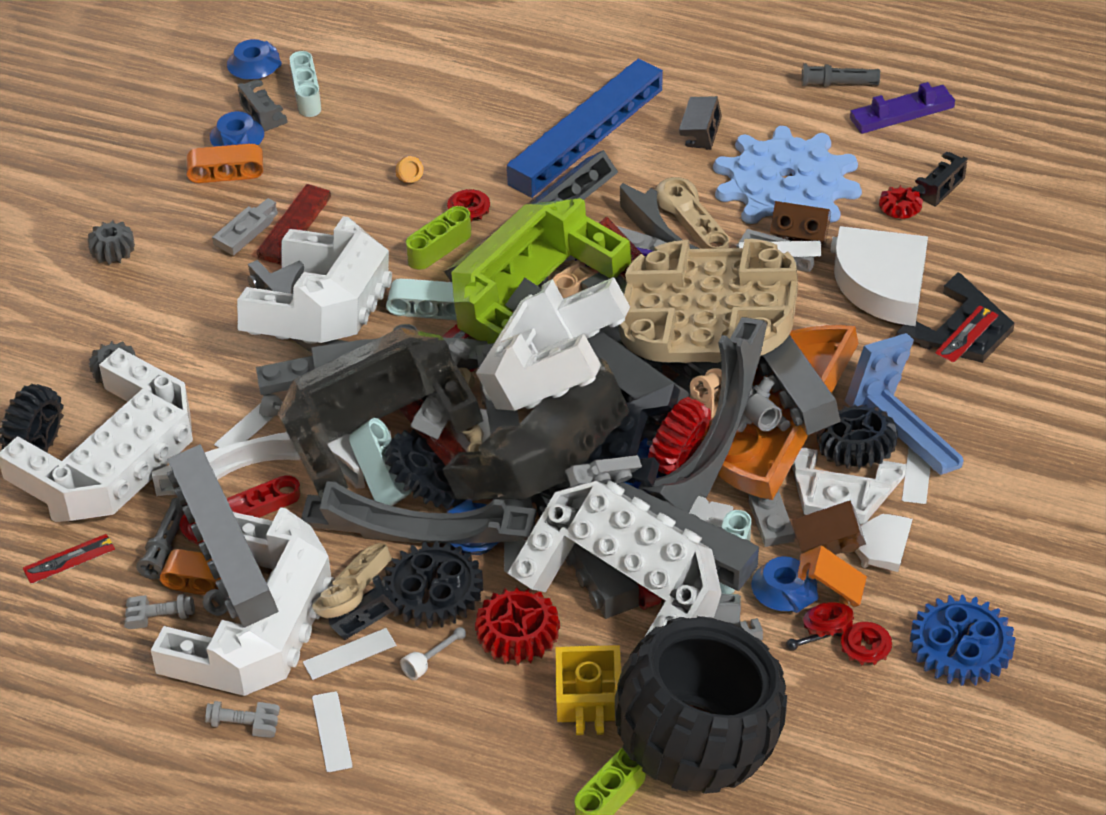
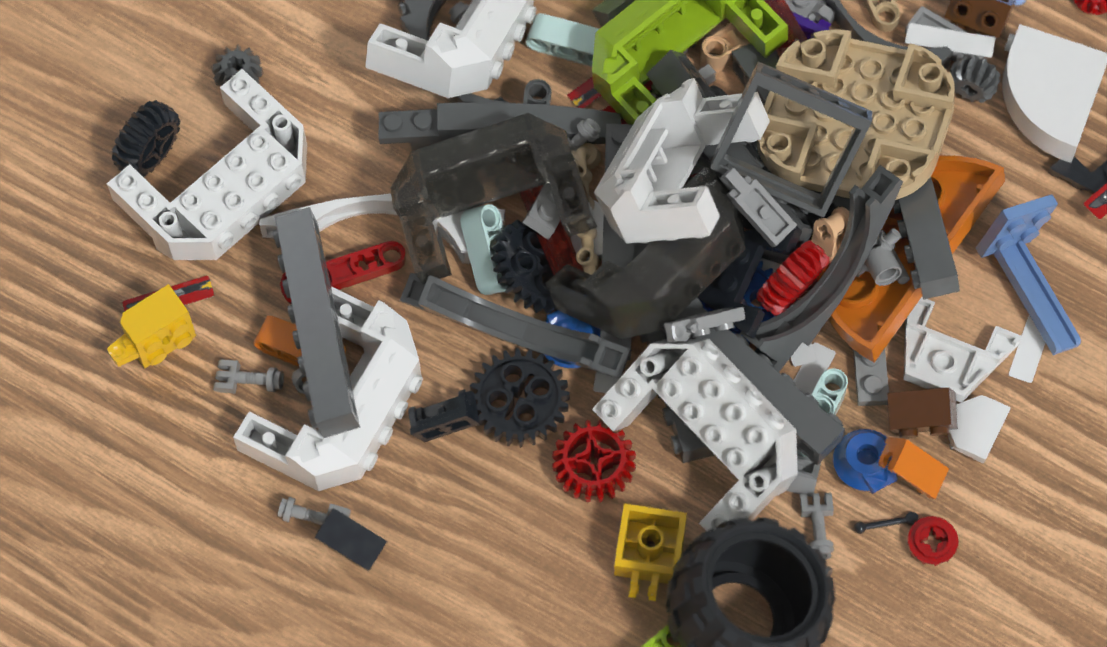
camera: 10 degrees right, 20 degrees up
(58, 575) = (153, 329): none -> yellow hinge
(156, 557) = (254, 305): dark grey pin -> none
(245, 428) = (364, 168): white sticker -> none
(268, 405) = (386, 151): light grey hinge -> none
(284, 723) = (350, 539): none -> black hinge
(332, 731) = (398, 545): white sticker -> none
(349, 585) = (429, 405): tan beam -> none
(349, 653) = (426, 459): white sticker -> none
(416, 664) = (489, 486): white hinge -> none
(634, 368) = (758, 207): none -> light grey hinge
(651, 358) = (813, 98): none -> dark grey window
(813, 272) = (975, 78): none -> dark grey gear
(828, 619) = (897, 499): red gear -> none
(859, 438) = (979, 307): black gear -> none
(977, 654) = (1050, 575): blue gear -> none

